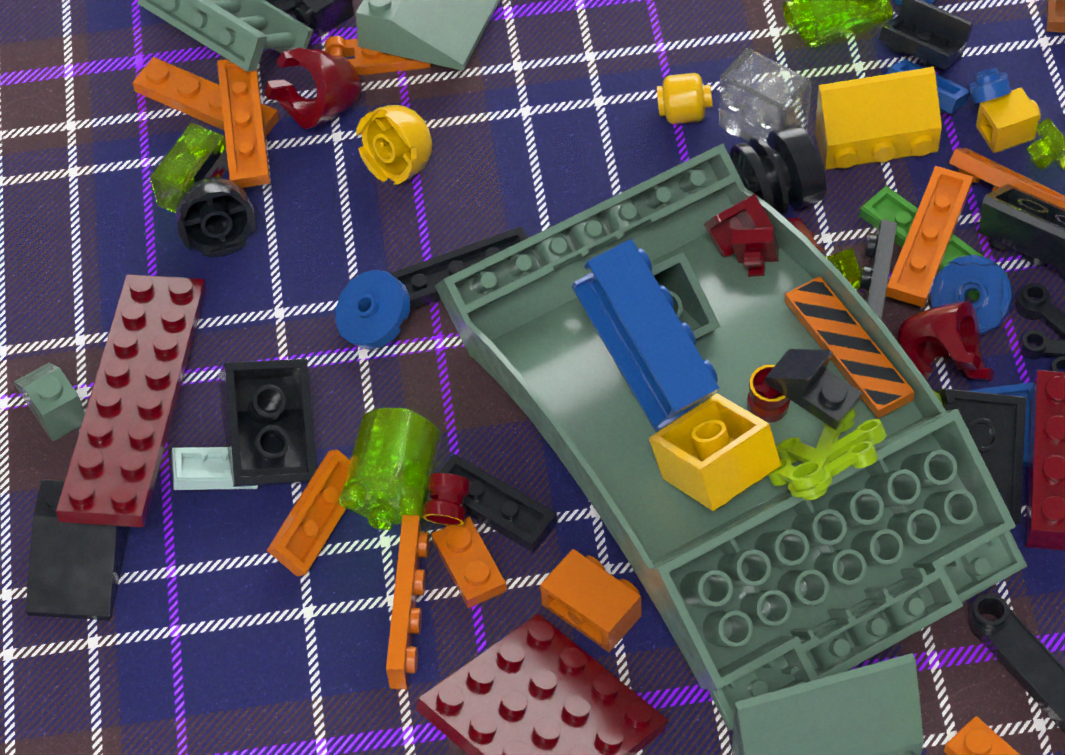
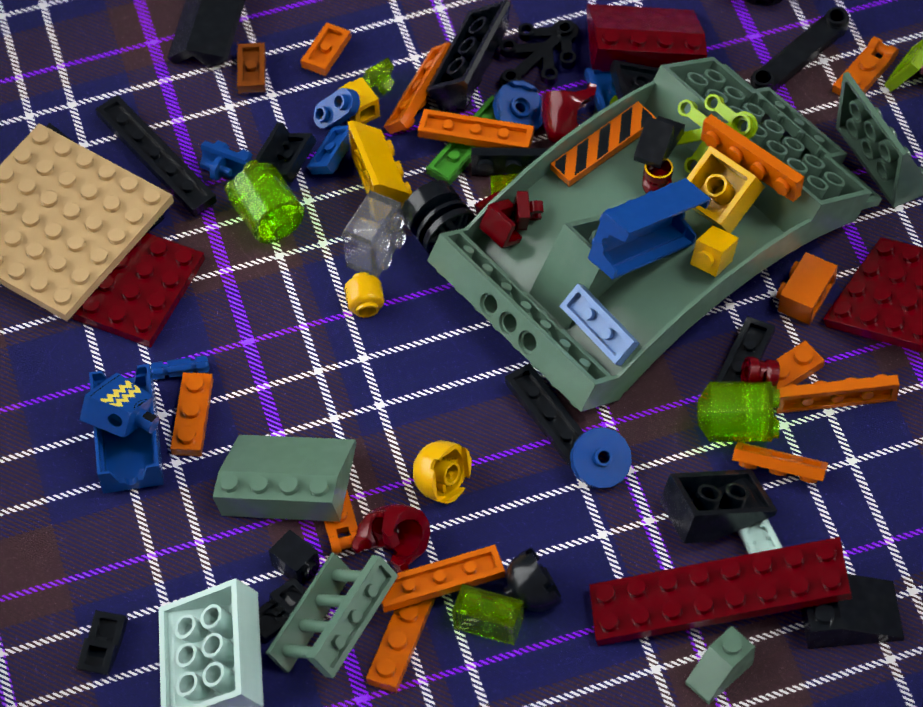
camera: 100 degrees left, 0 degrees up
(534, 304) = (599, 324): none -> medium blue plate
(616, 434) = (714, 251): none -> yellow brick
(758, 472) = (752, 158): none -> orange plate

